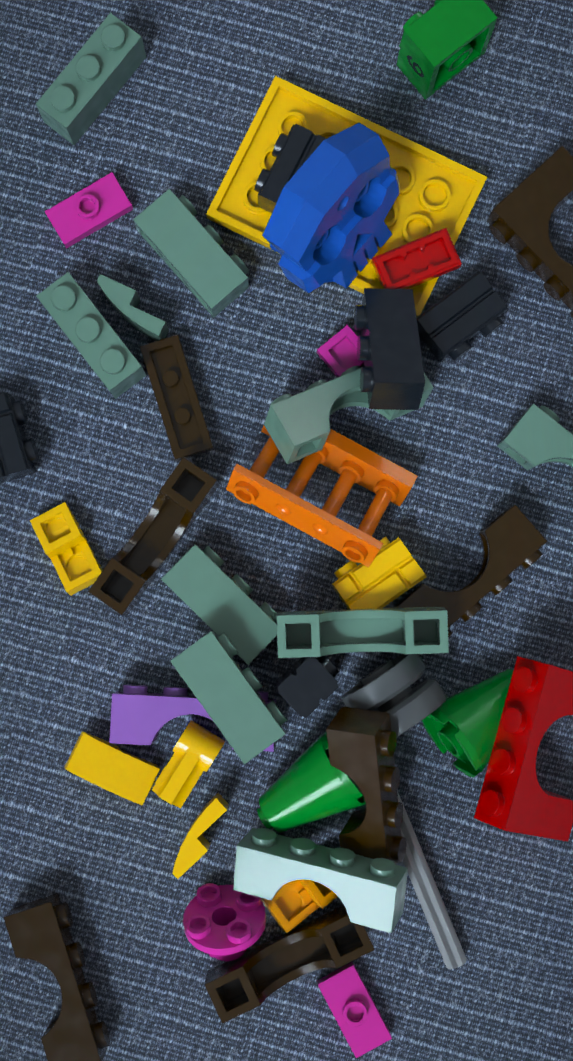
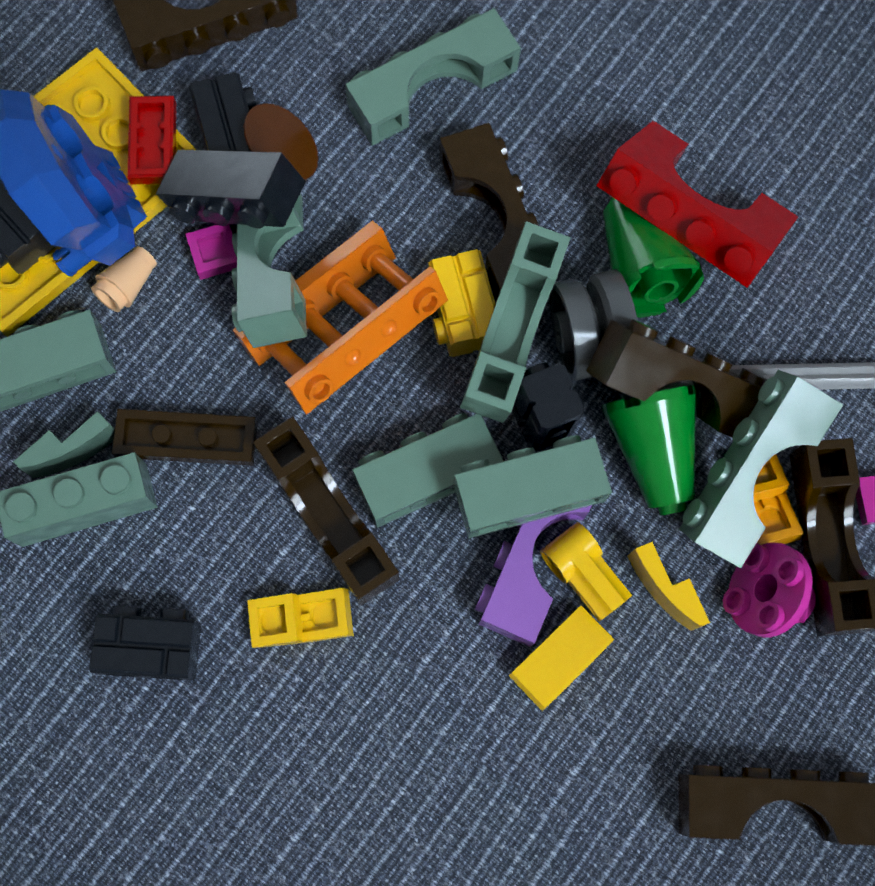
camera: 70 degrees left, 10 degrees down
(288, 295) = (123, 280): none -> light nougat cone
(461, 369) = (278, 130): none -> reddish brown piece

